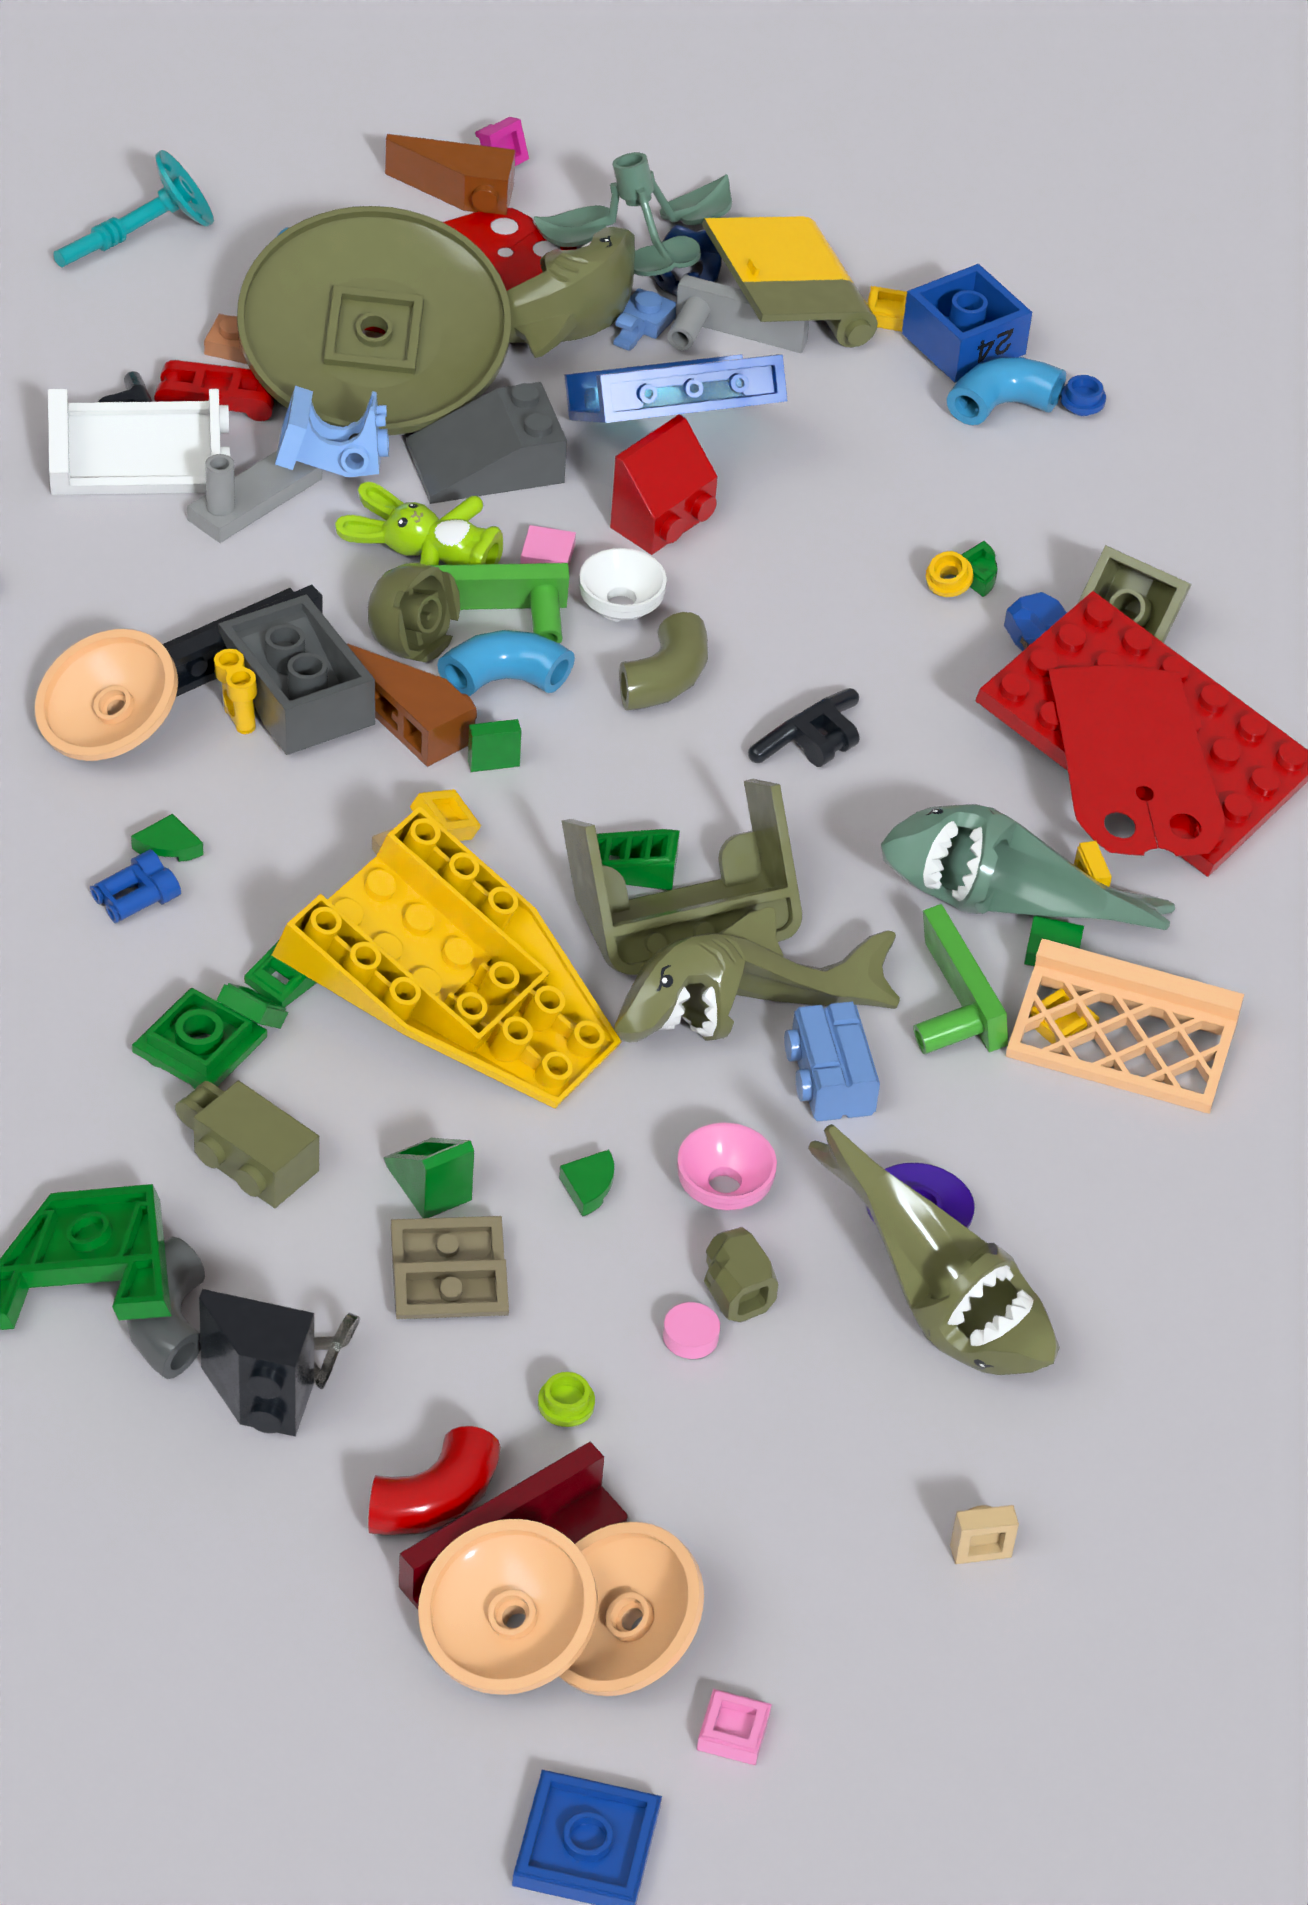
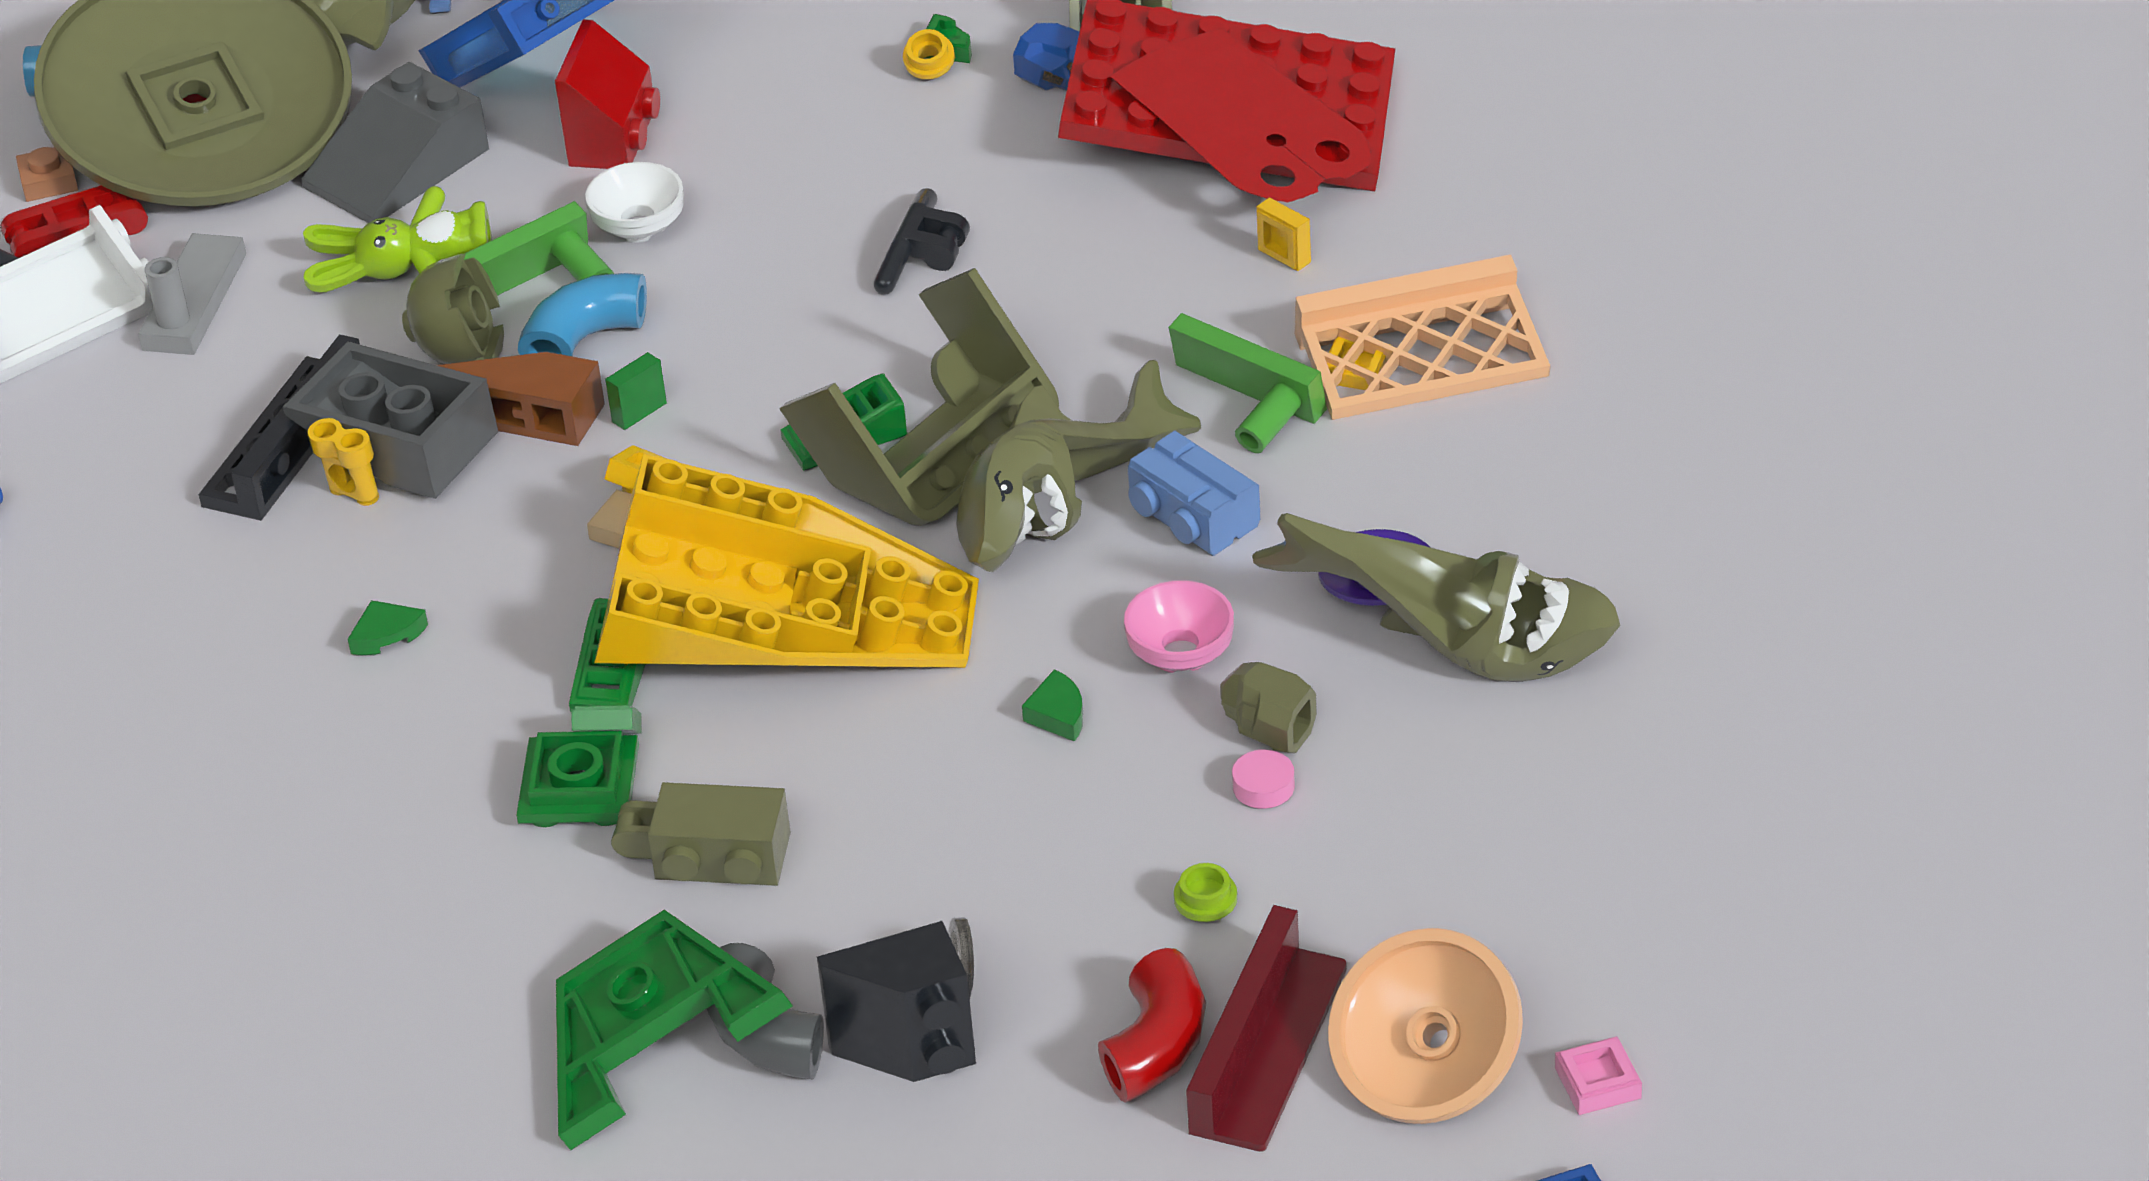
camera: 25 degrees left, 5 degrees down
(106, 694) = (207, 505): light nougat dish -> none
(153, 884) = (397, 665): blue piece -> none
(328, 446) = (213, 219): light blue tile -> none
(434, 1174) = (910, 770): green slope -> none
(449, 1267) = (994, 844): dark tan slope -> none
(501, 1573) = (1315, 1044): light nougat dish -> none
(548, 546) = (526, 204): bright pink tile -> none
(670, 670) = (744, 250): olive cylinder -> none
(984, 1534) = (1675, 798): tan plate -> none
(997, 865) = (1206, 258): sand green piece -> none
(1052, 930) = (1280, 301): green tile -> none

